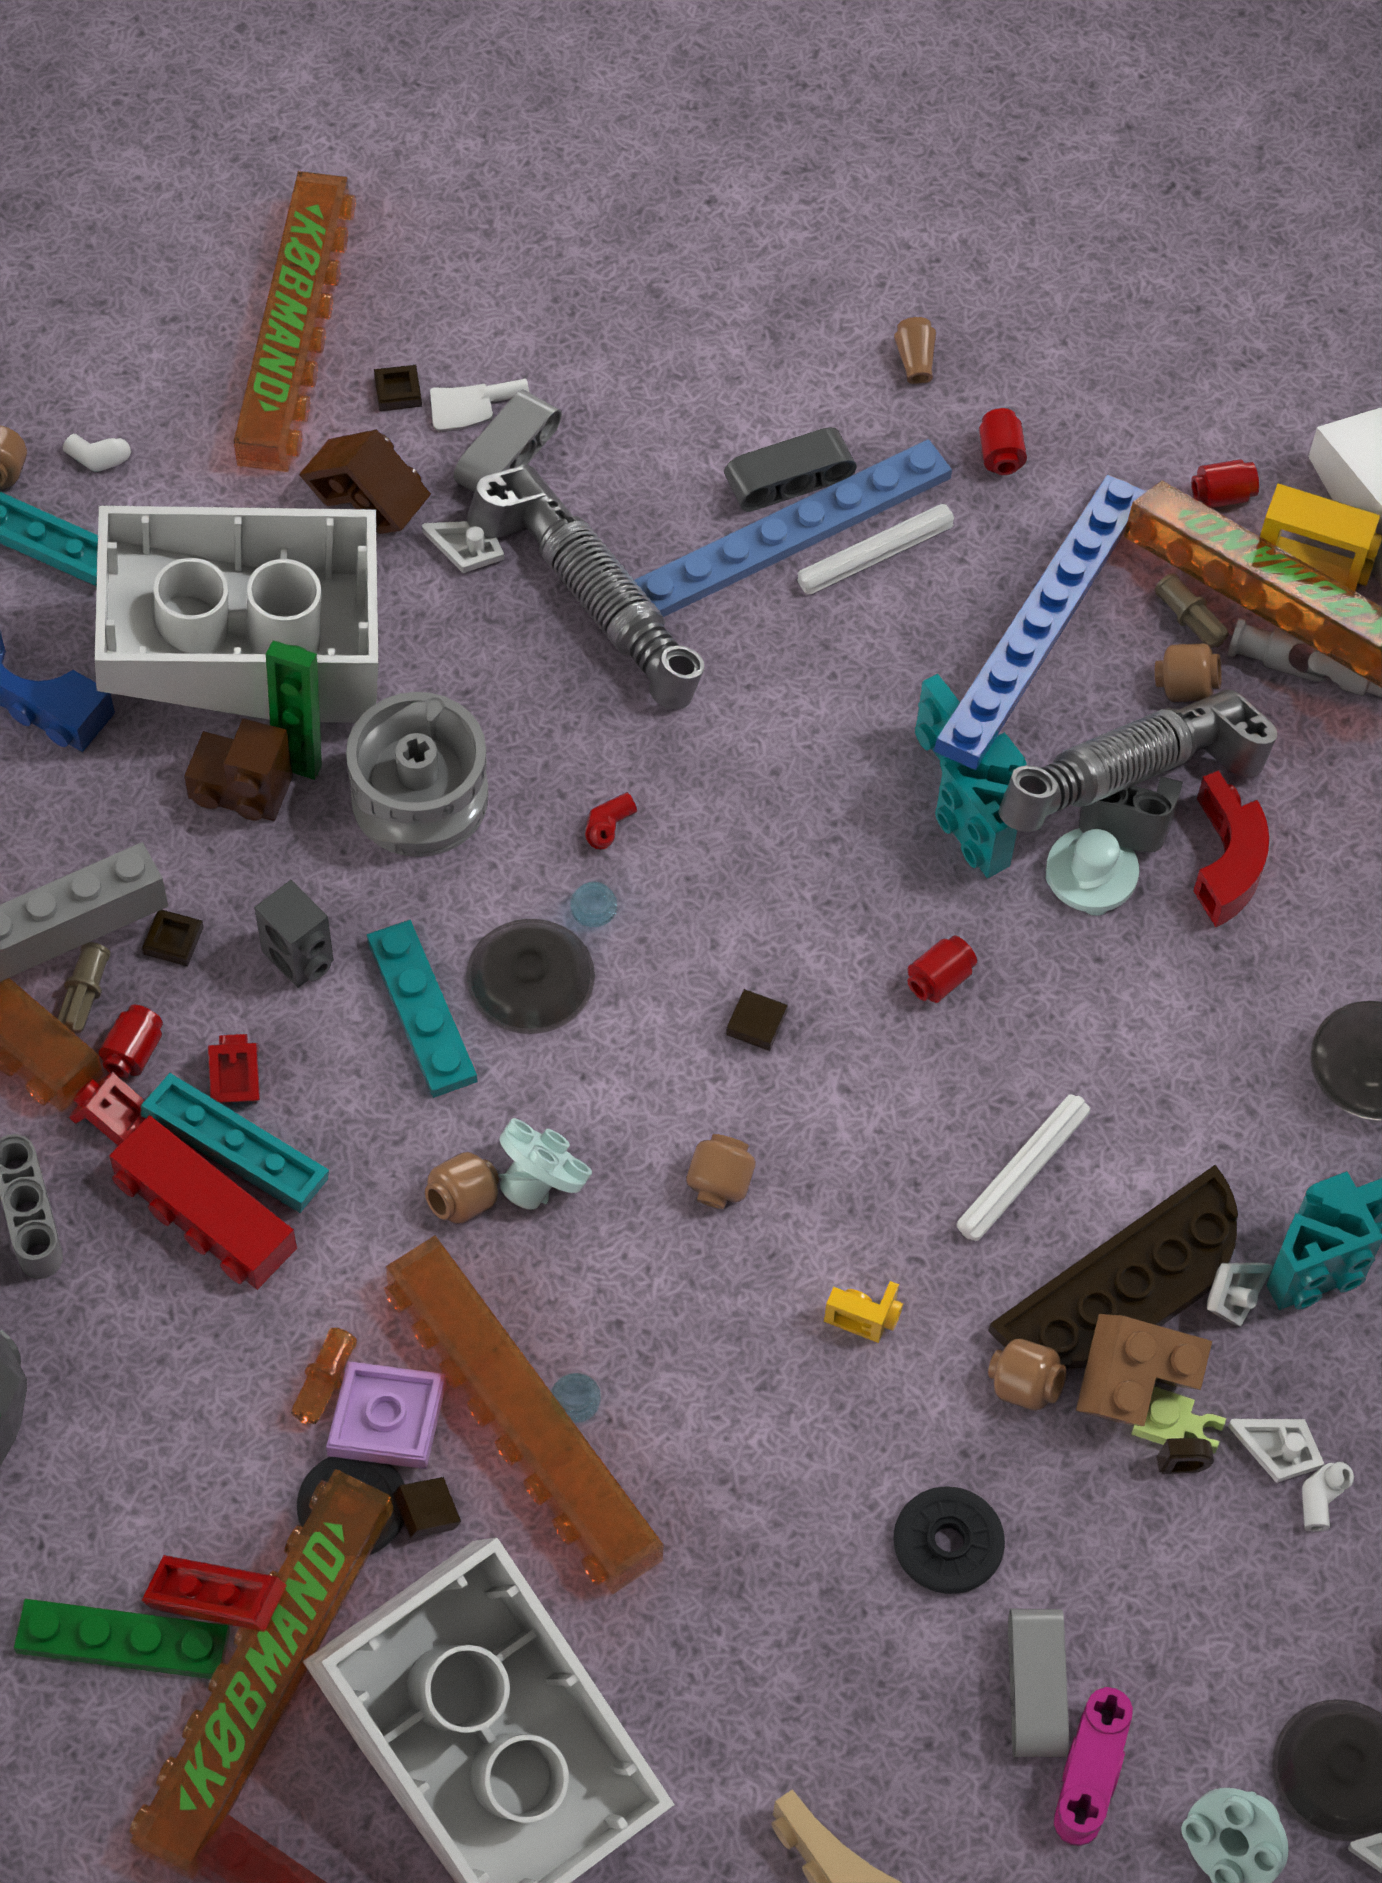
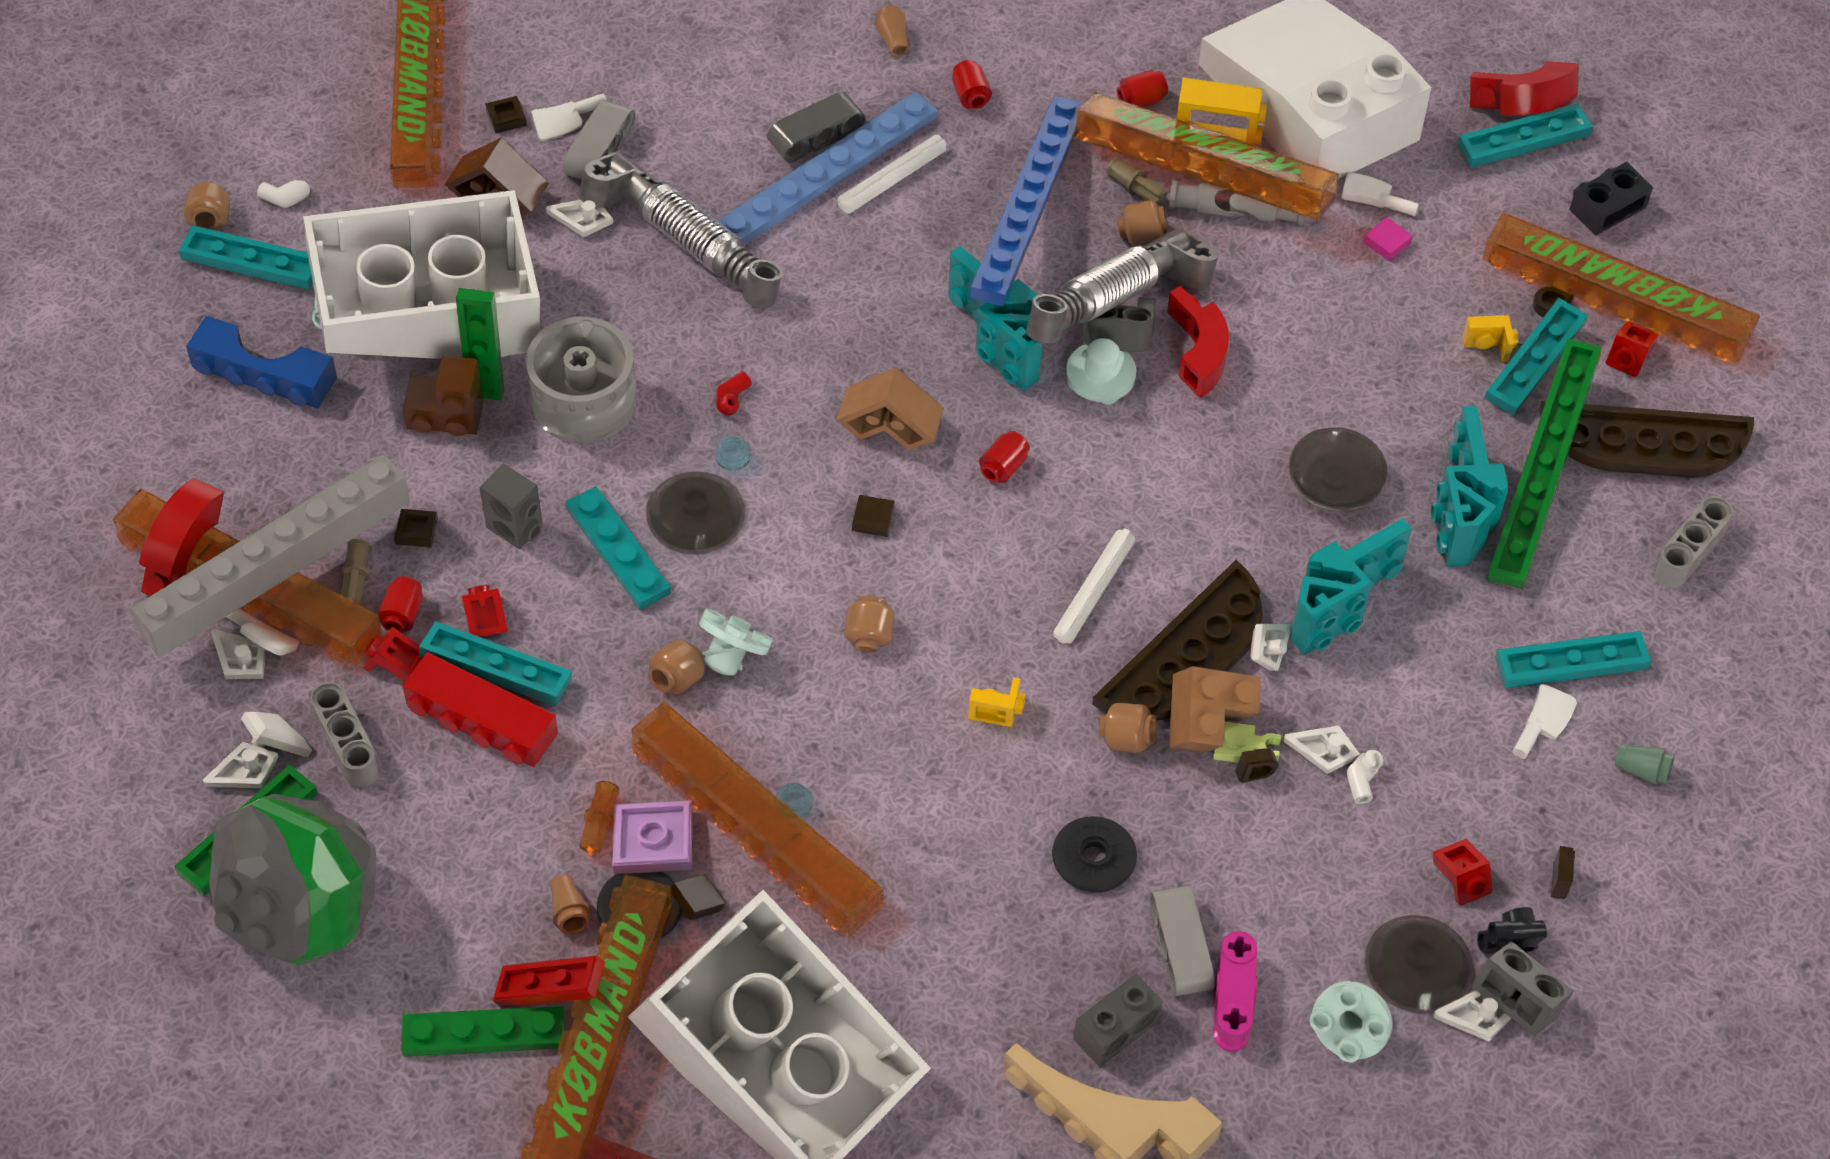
camera: 10 degrees left, 5 degrees down
(261, 1489) = (568, 907): none -> medium nougat cone
(809, 876) = (891, 405): none -> medium nougat brick
(931, 1779) = (1118, 1020): none -> dark grey brick

